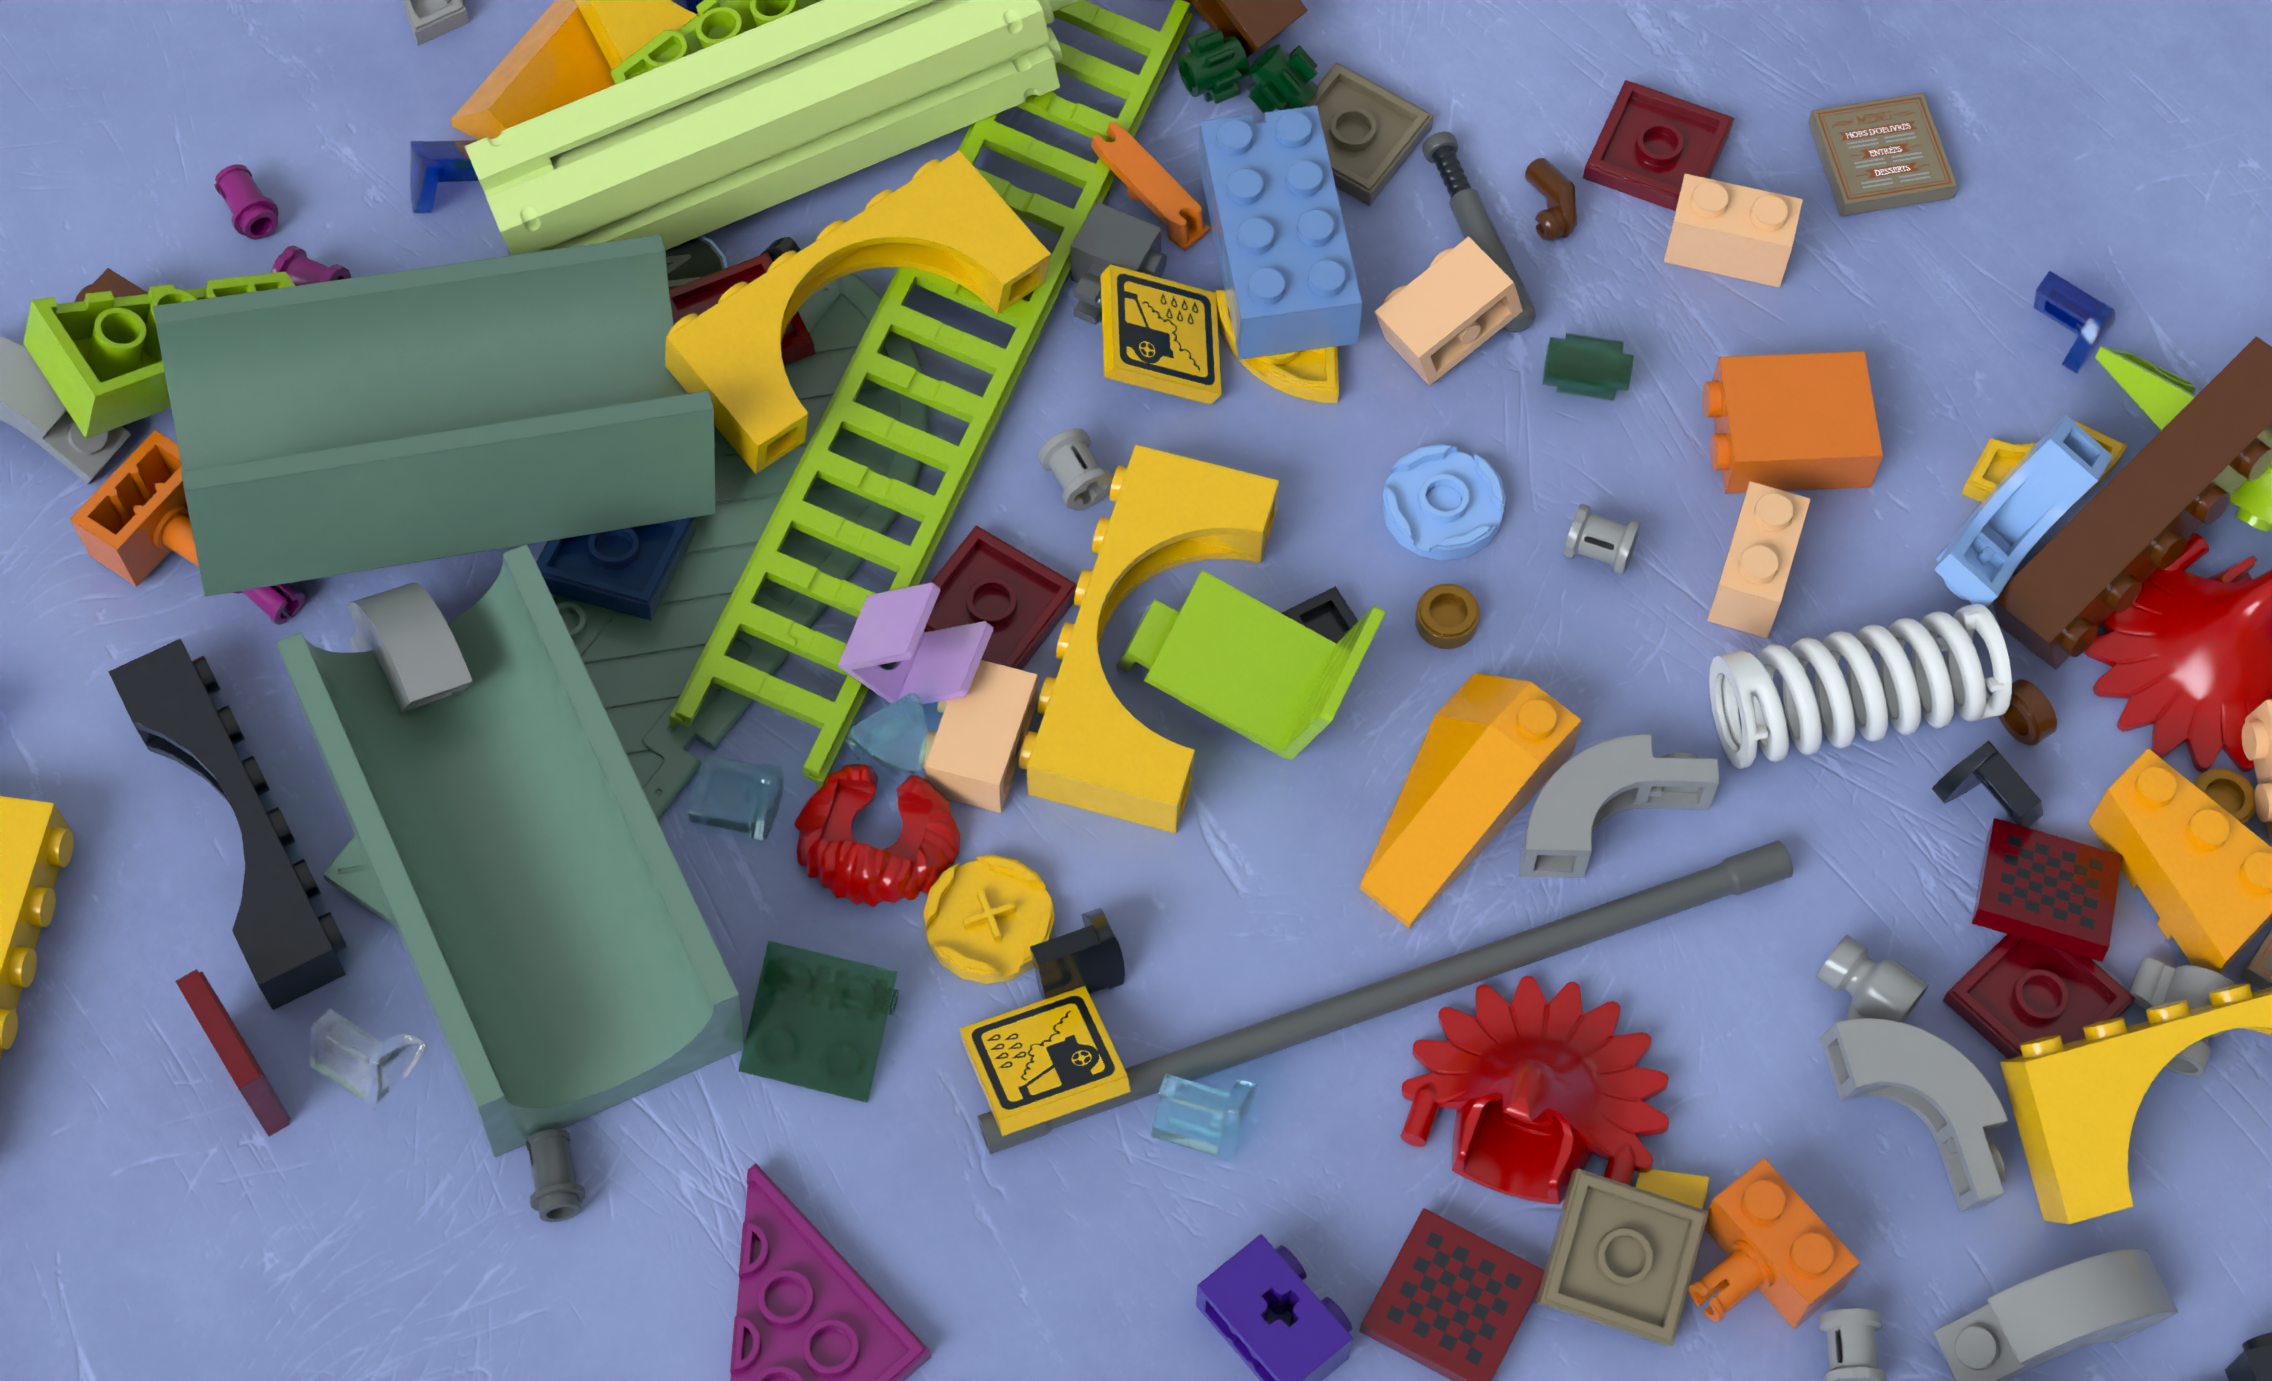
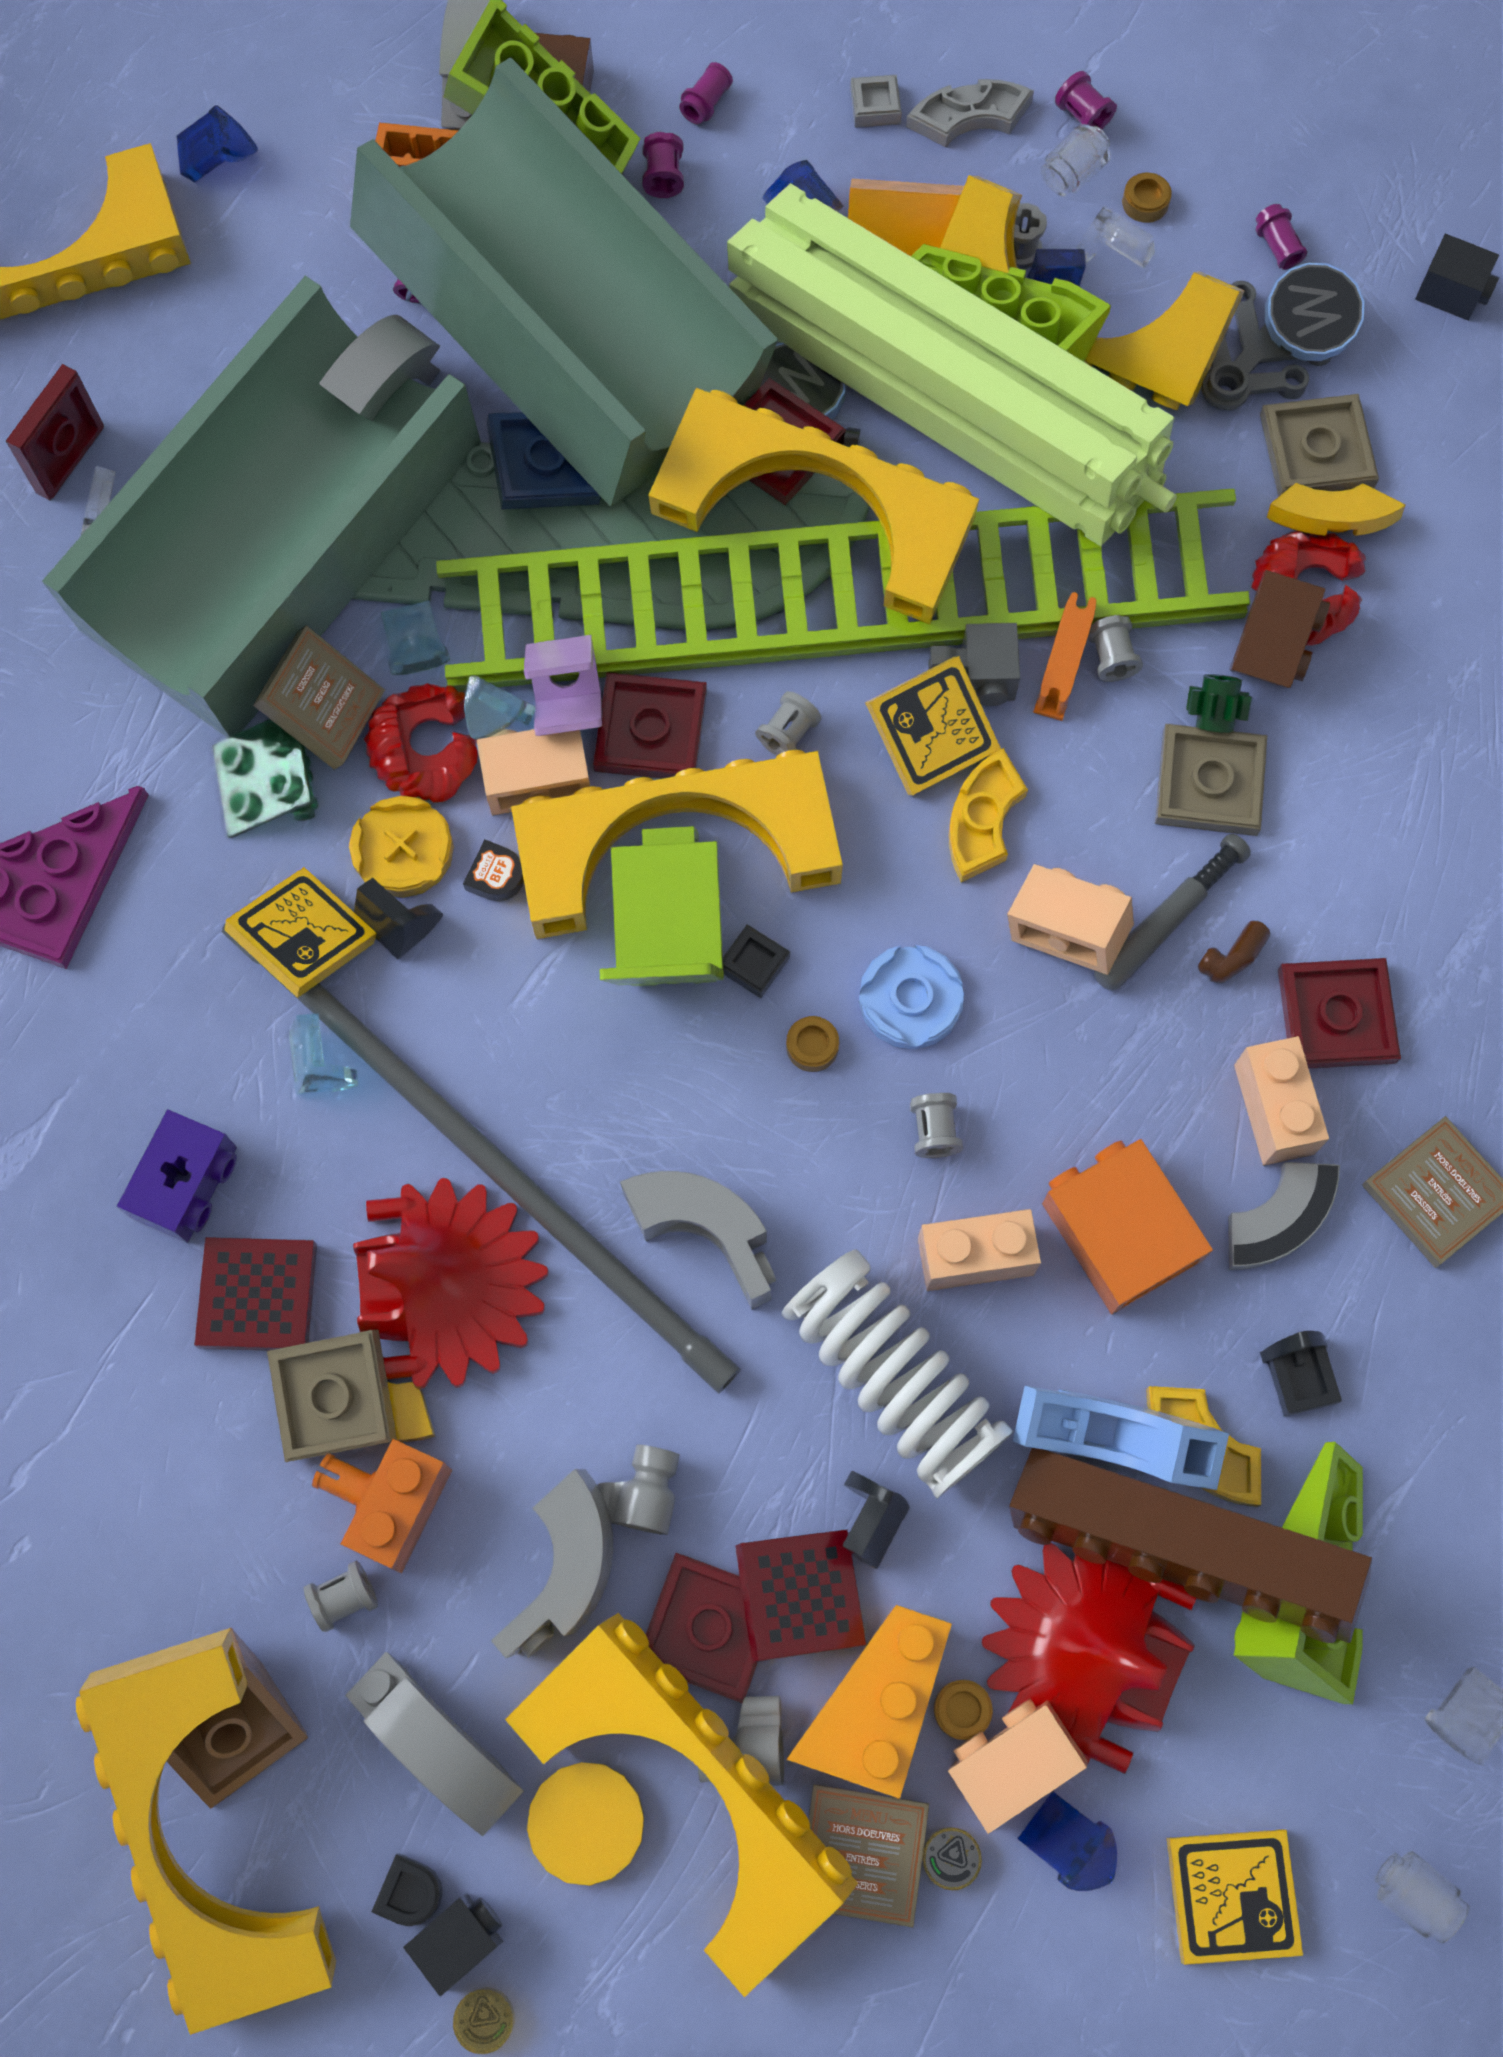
camera: 65 degrees right, 10 degrees up
(276, 924) = (286, 256): black arch -> none
(370, 55) = (875, 101): none -> light grey tile
(556, 1190) = (77, 670): dark grey pin -> none
(773, 906) = (319, 697): none -> dark tan tile
(1078, 834) = (494, 873): none -> tile
(1168, 140) = (1114, 648): none -> light grey bush
(1213, 66) = (1202, 647): dark green gear -> none
(1279, 233) = (1065, 761): medium blue piece -> none
(1469, 780) = (676, 1121): light orange wedge -> none
(1587, 366) = (1087, 1045): clear green brick -> none
(1847, 289) = (1286, 1219): none -> tile
(2010, 352) = (1302, 1372): none -> black tile
(2029, 715) = (953, 1516): reddish brown tile -> none
(2076, 312) = (1366, 1412): clear blue tile -> none
(2199, 1210) = (585, 1823): none -> yellow tile

